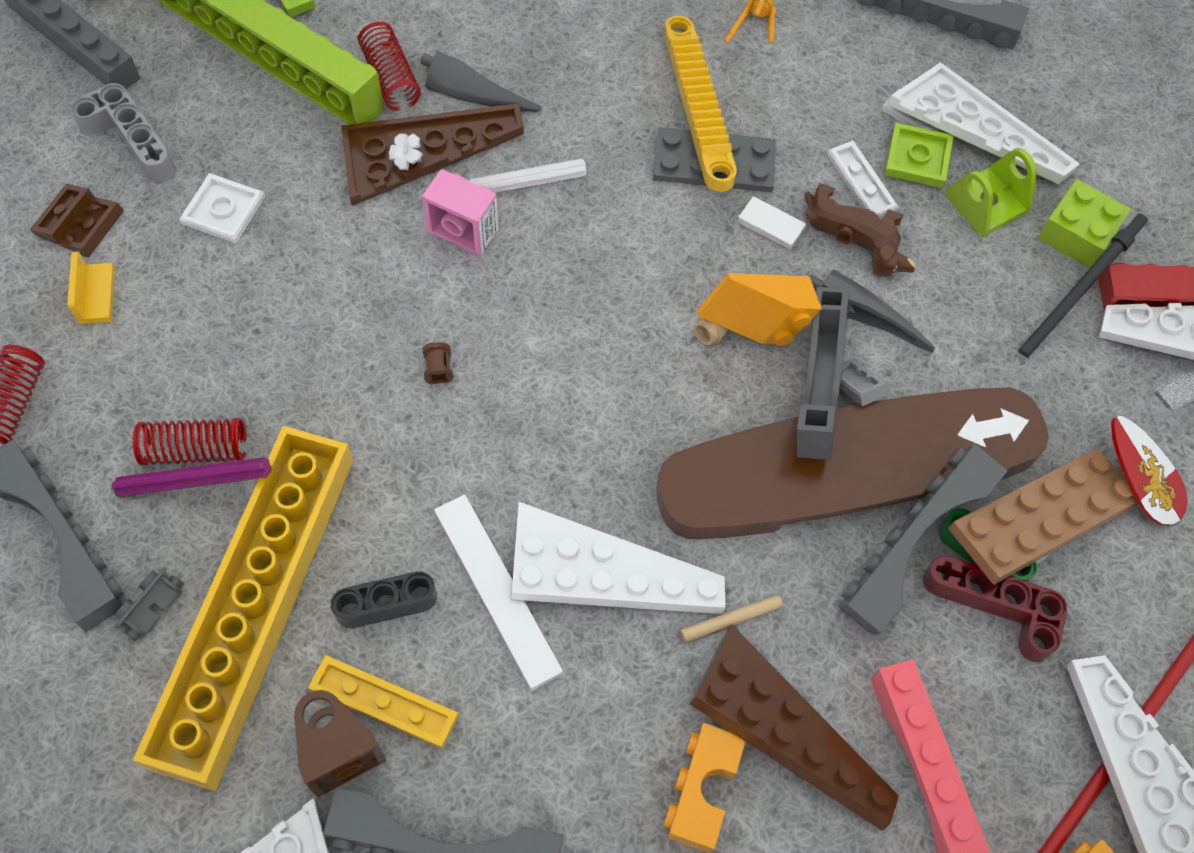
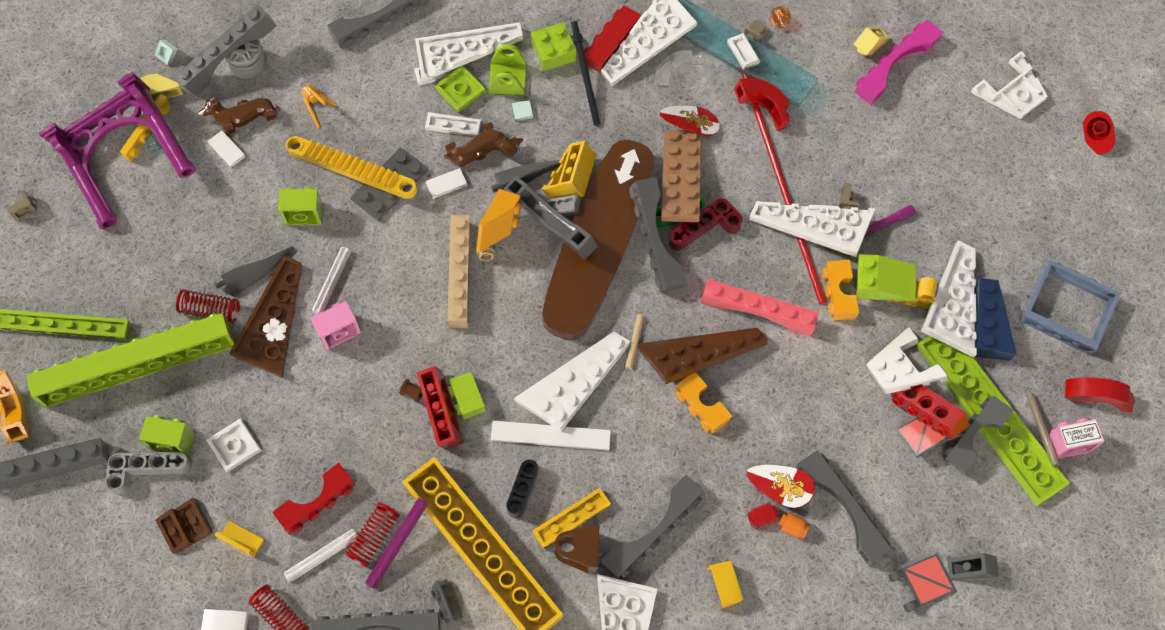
camera: 55 degrees left, 5 degrees up
(124, 398) = (320, 555): none -> white axle
(180, 122) = (167, 435): none -> lime brick
(238, 352) = (294, 515): none -> red arch
(432, 411) = (439, 407): none -> red brick
(477, 436) = (467, 396): none -> lime brick
(596, 76) = (300, 206): none -> lime brick
(615, 332) = (459, 271): none -> tan arch
(921, 363) = (573, 172): none -> yellow wedge
(956, 248) = (522, 110): none -> light aqua tile

